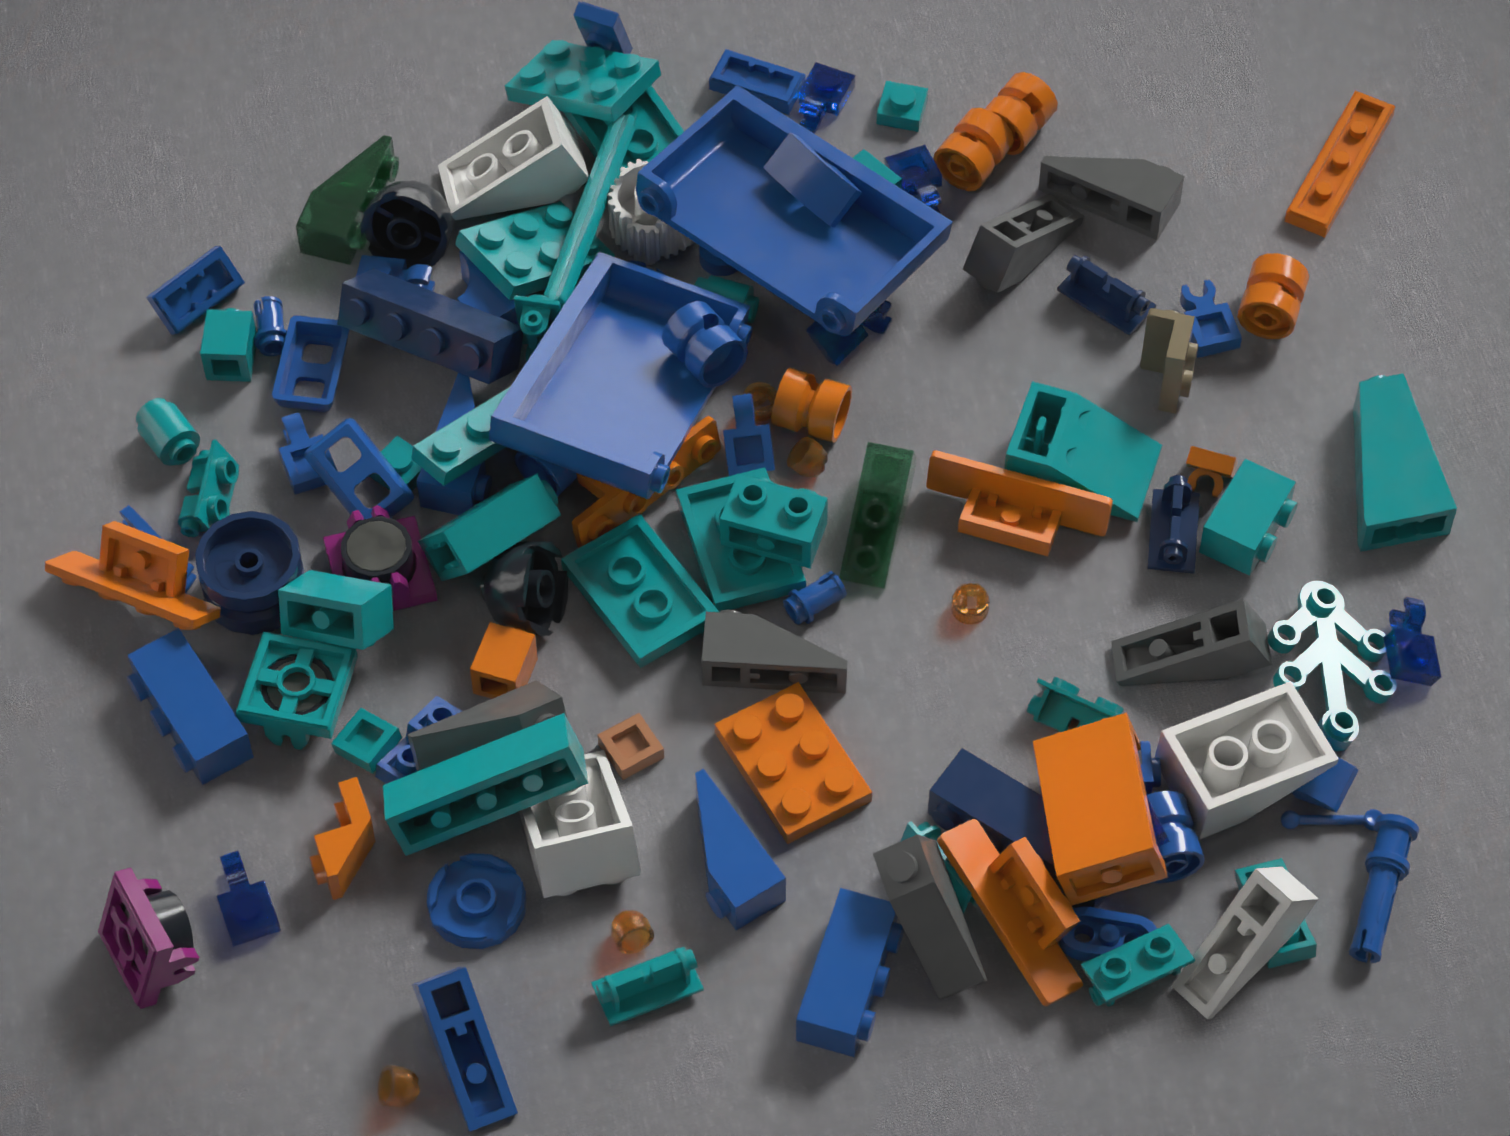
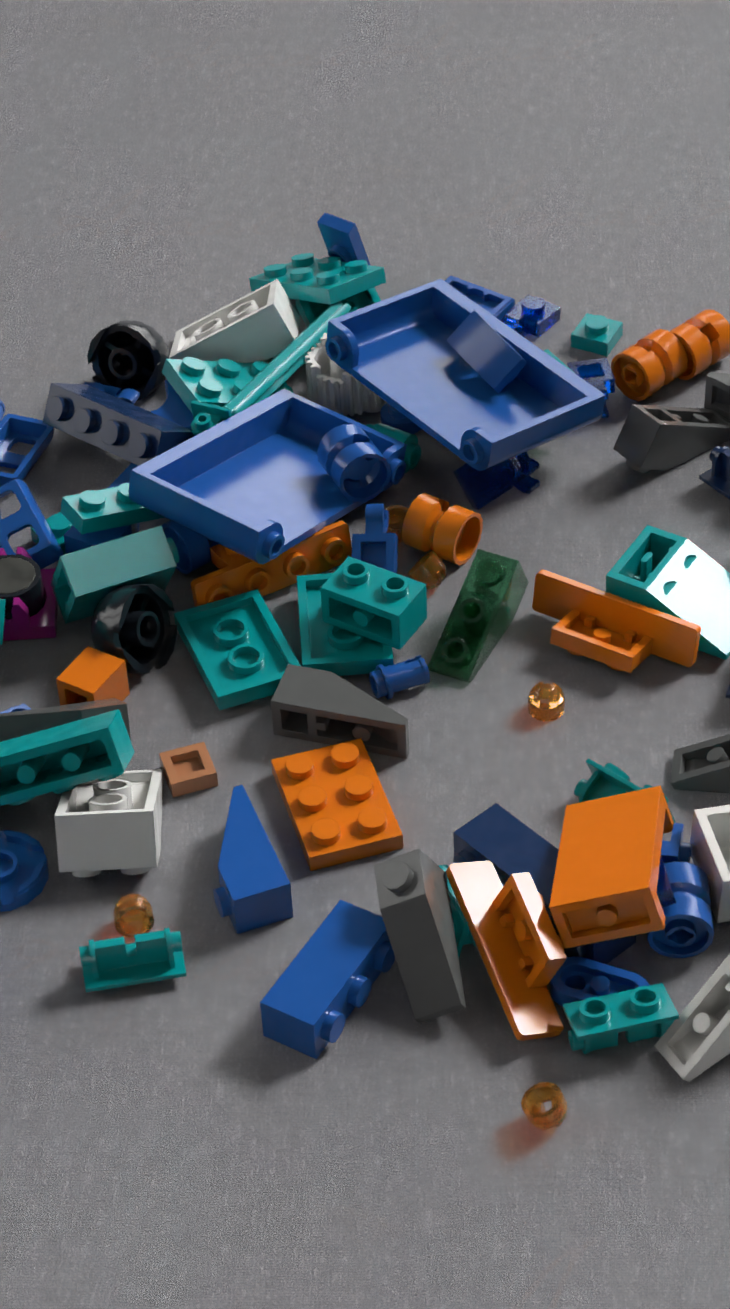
camera: 15 degrees right, 15 degrees down
(336, 207) = (64, 350): clear green slope -> none
(1078, 1078) = (534, 1109): none -> clear orange hinge

